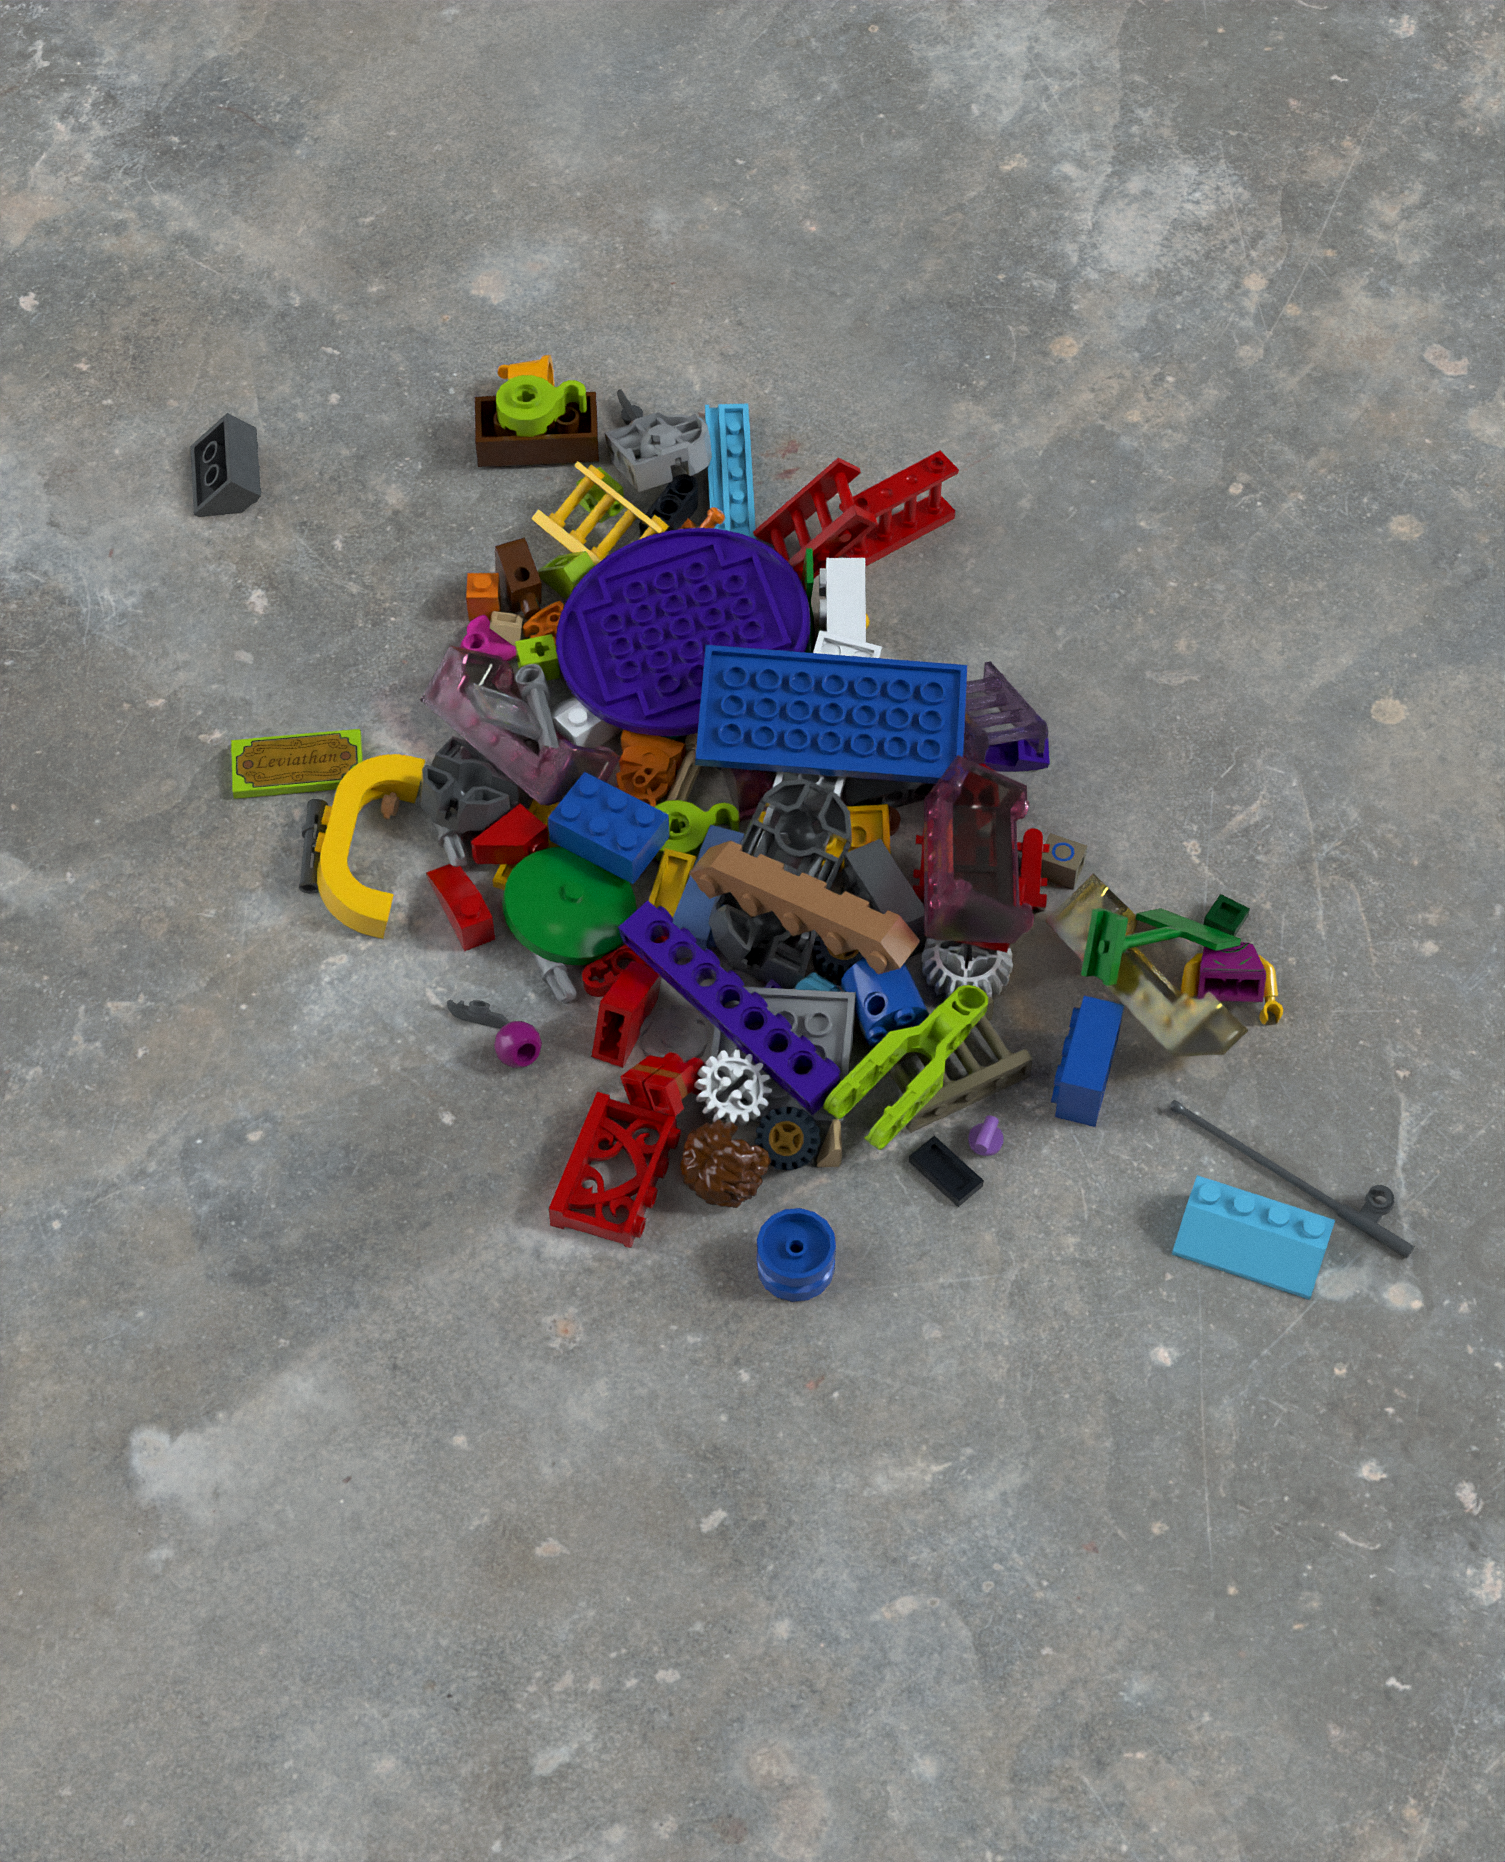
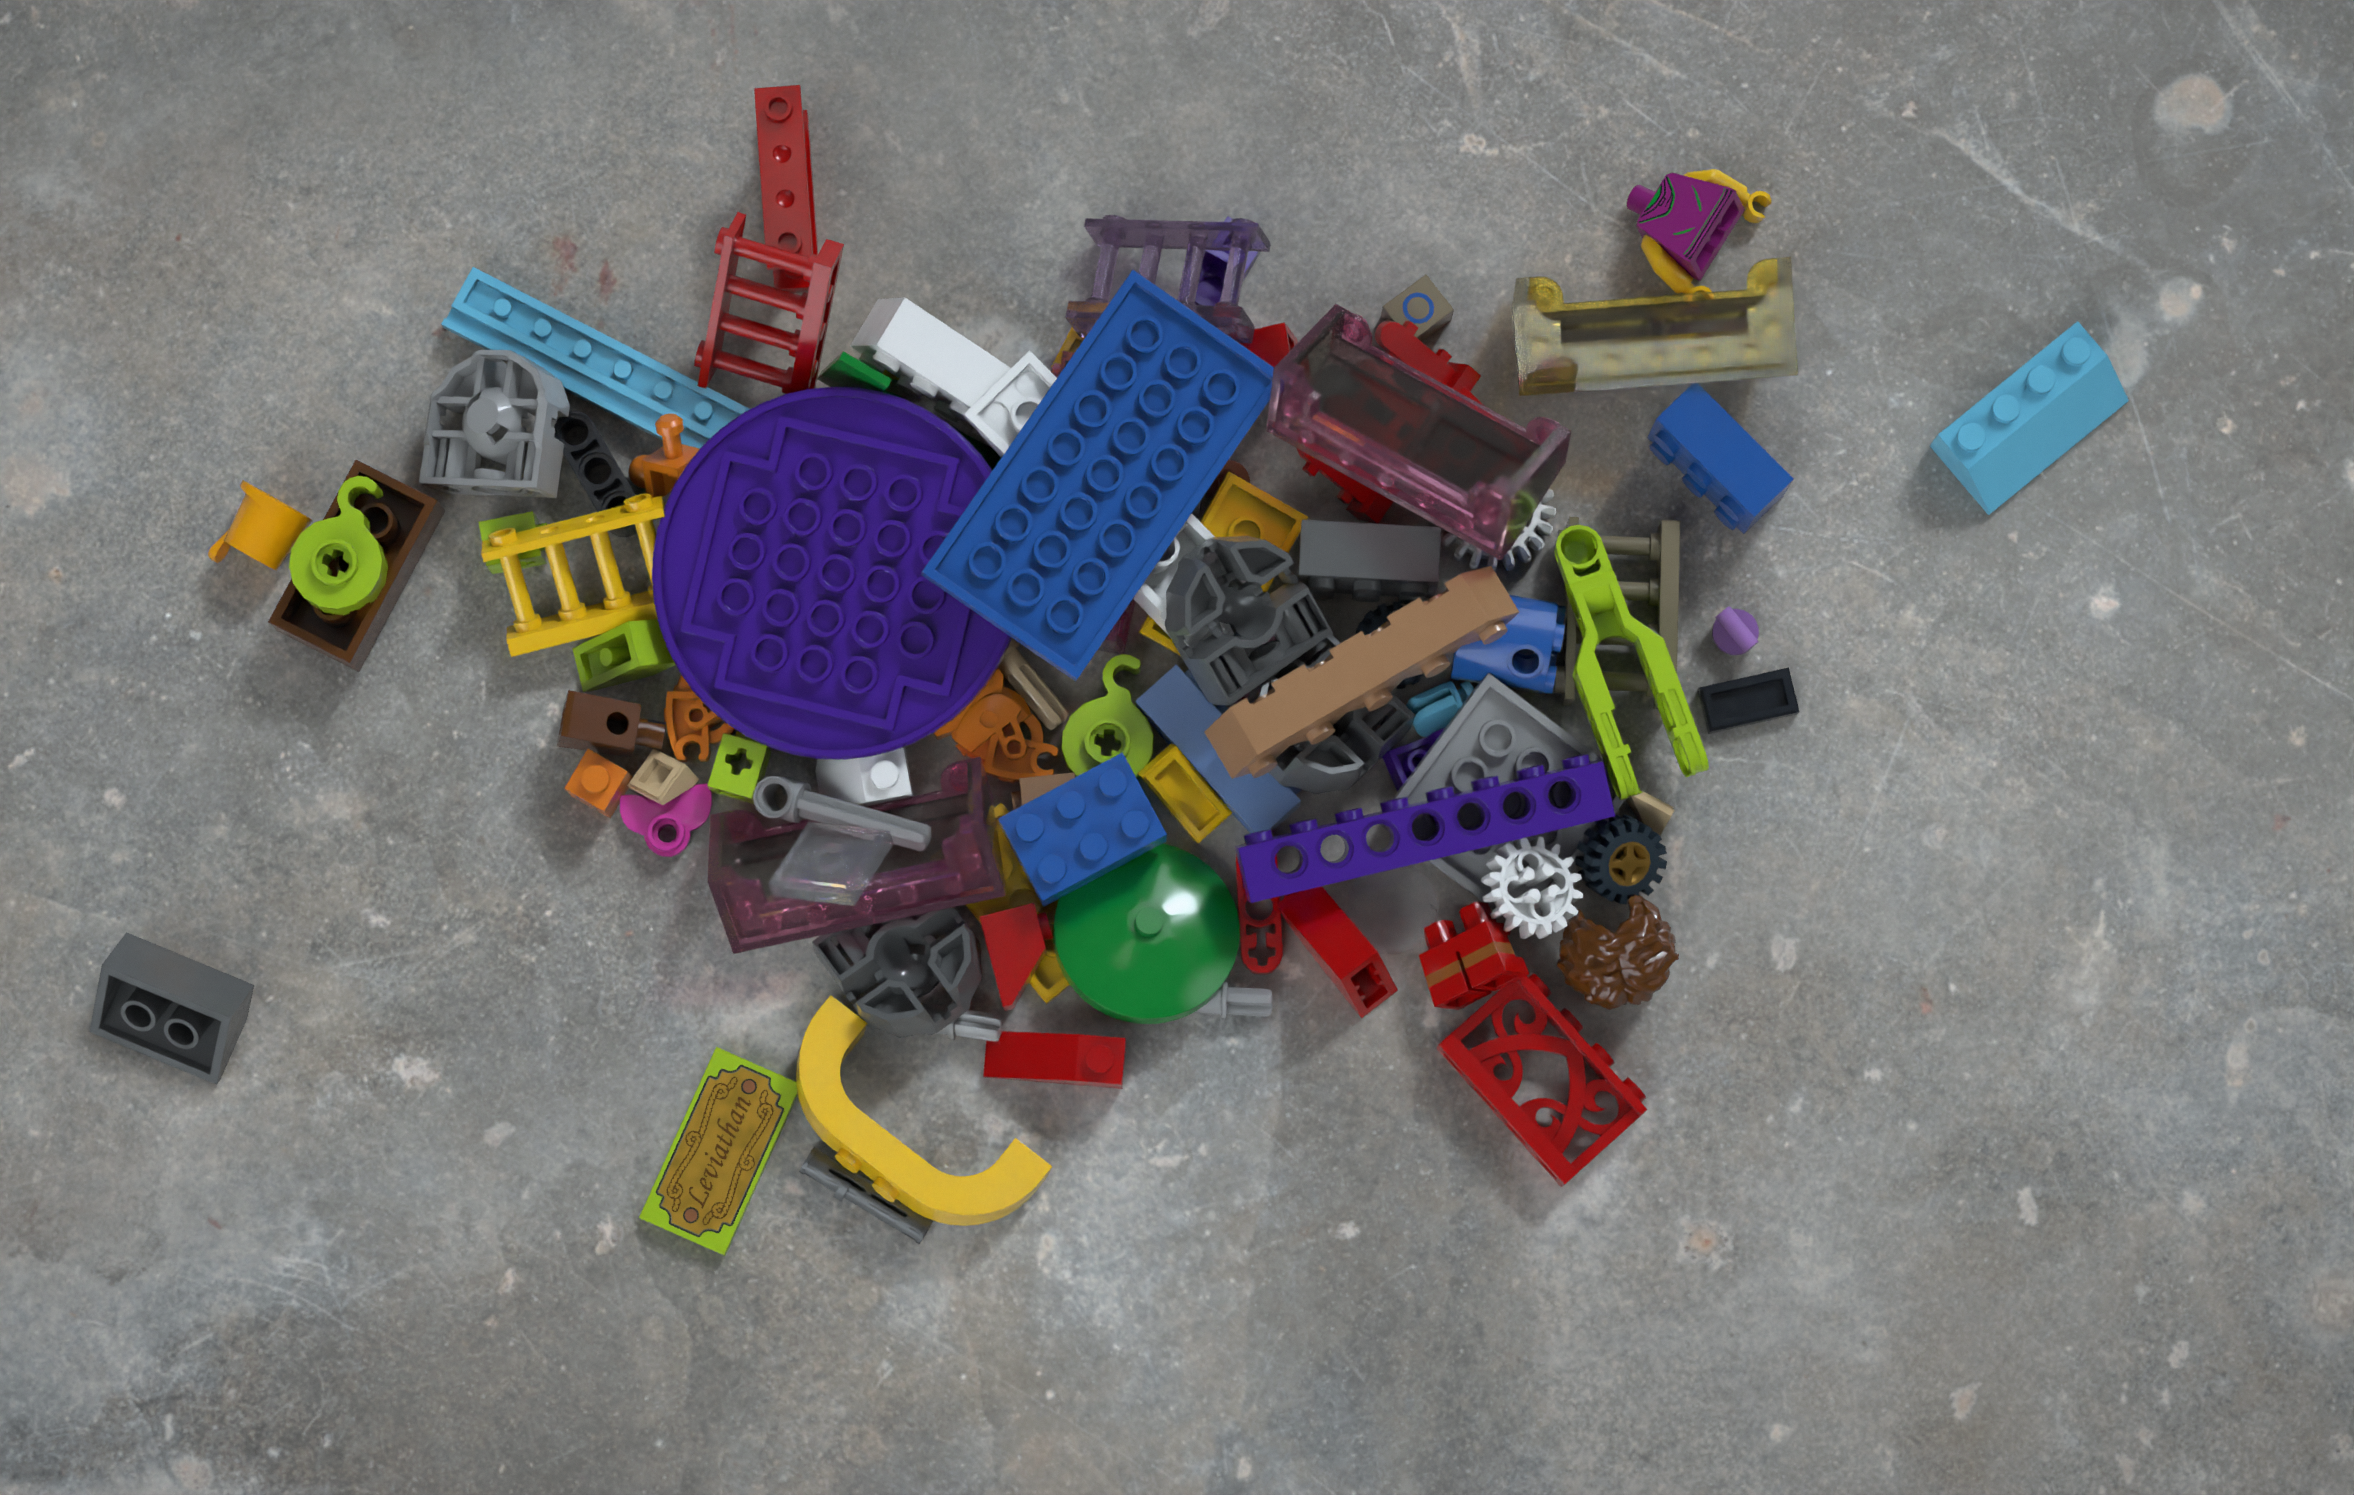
camera: 60 degrees left, 25 degrees up
(390, 805) = (857, 1069): light nougat piece -> none
(477, 1012) = (1227, 1119): dark grey piece -> none
(517, 1044) = (1310, 1099): magenta piece -> none
(629, 411) = (388, 423): dark grey piece -> none
(796, 1254) = (1749, 943): blue wheel -> none
(1109, 940) = (1604, 236): green piece -> none
(1226, 915) = (1601, 171): dark green plate -> none
(1365, 1220) = (2071, 276): dark grey piece -> none

